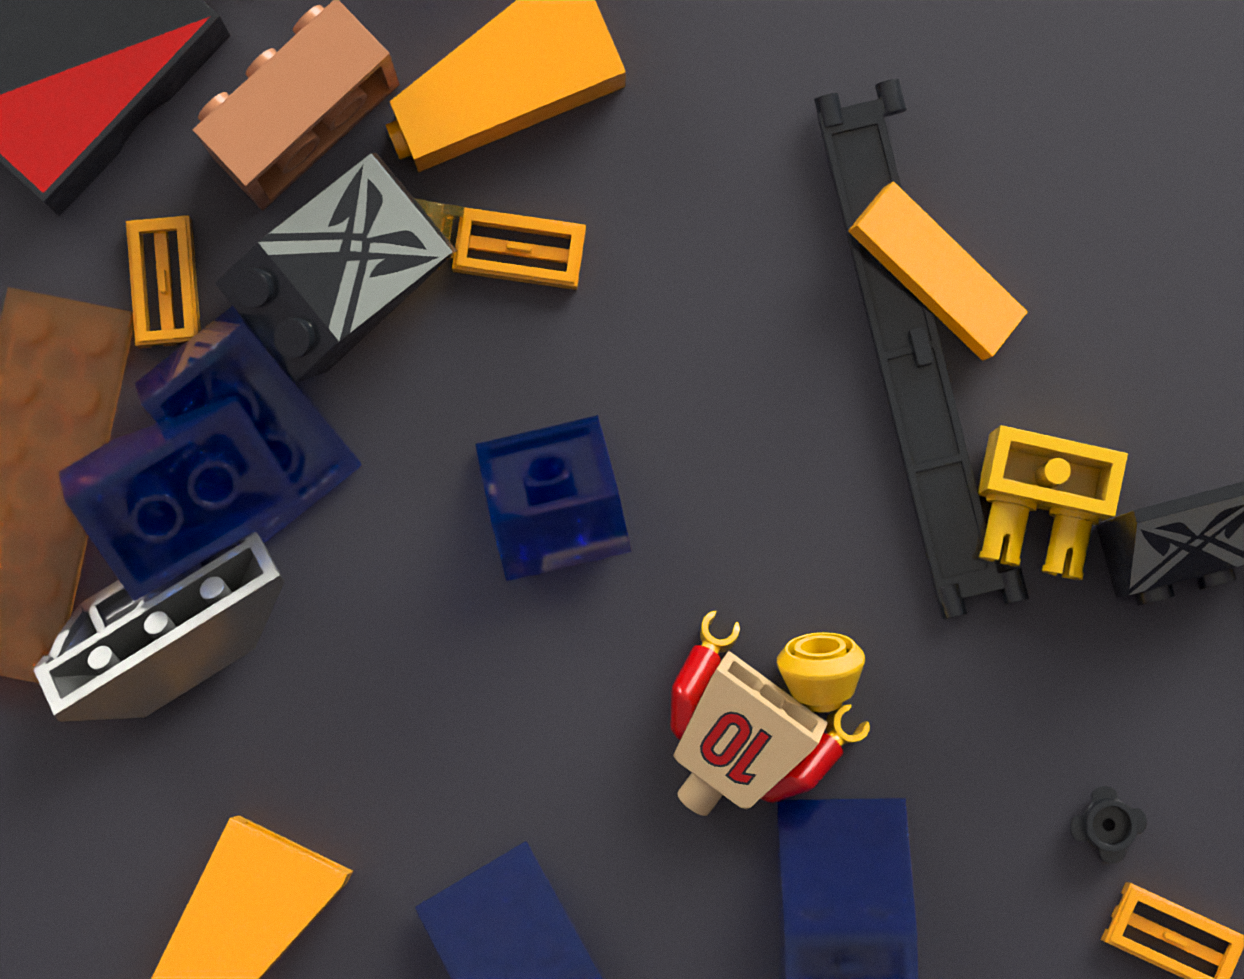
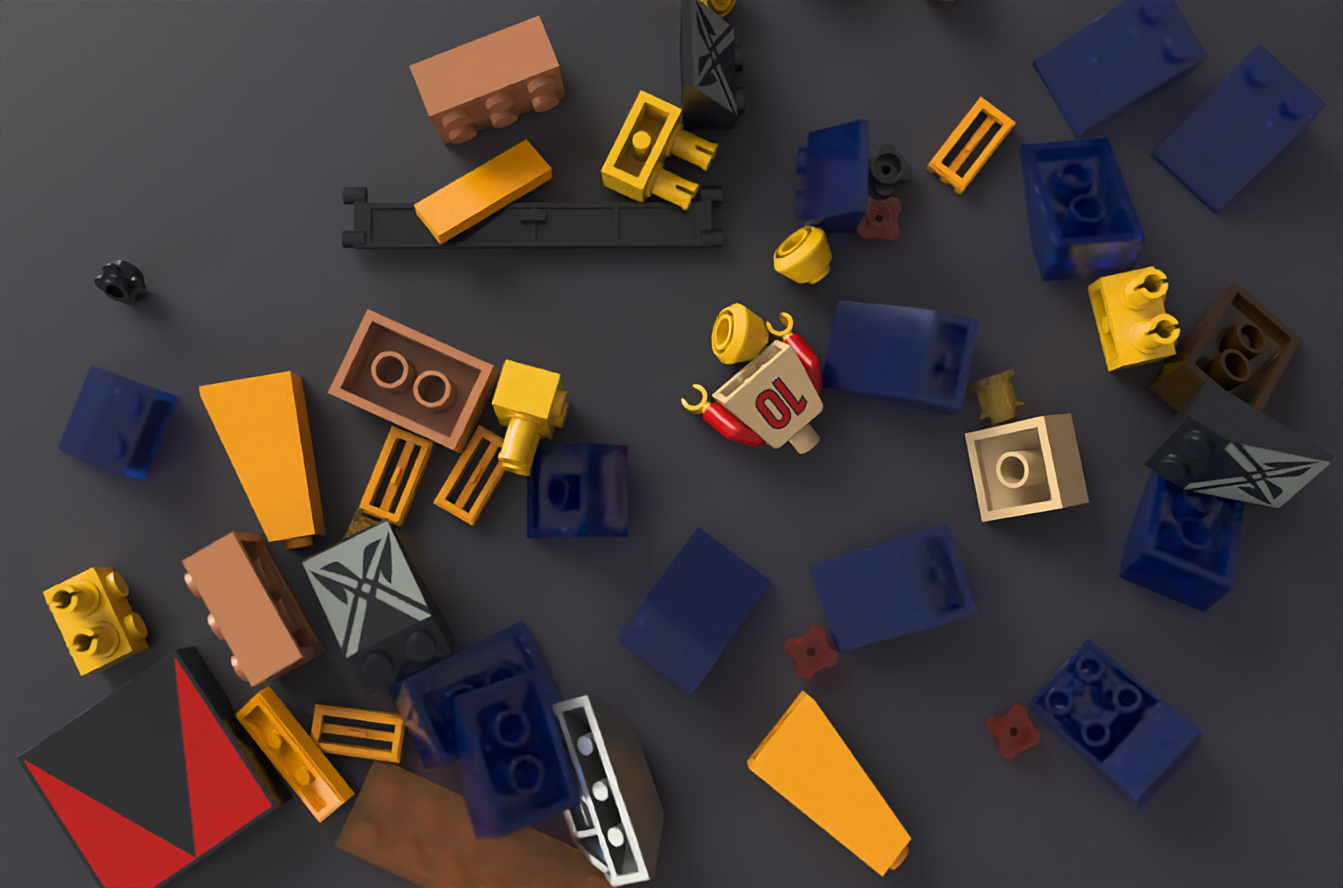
camera: 75 degrees left, 0 degrees up
(116, 204) = (294, 754): none -> light orange tile
(407, 888) = (823, 654): none -> clear red plate
(427, 695) = (693, 611): none -> clear blue slope
(538, 379) = (457, 509): none -> light orange tile
(649, 242) = (414, 381): none -> nougat brick
(651, 409) = (531, 407): none -> yellow brick
(955, 735) = (804, 256): none -> yellow cone
(1019, 821) = (888, 227): none -> clear red plate
(1072, 751) = (834, 177): none -> clear blue slope
(1089, 242) = (490, 81): none -> nougat brick

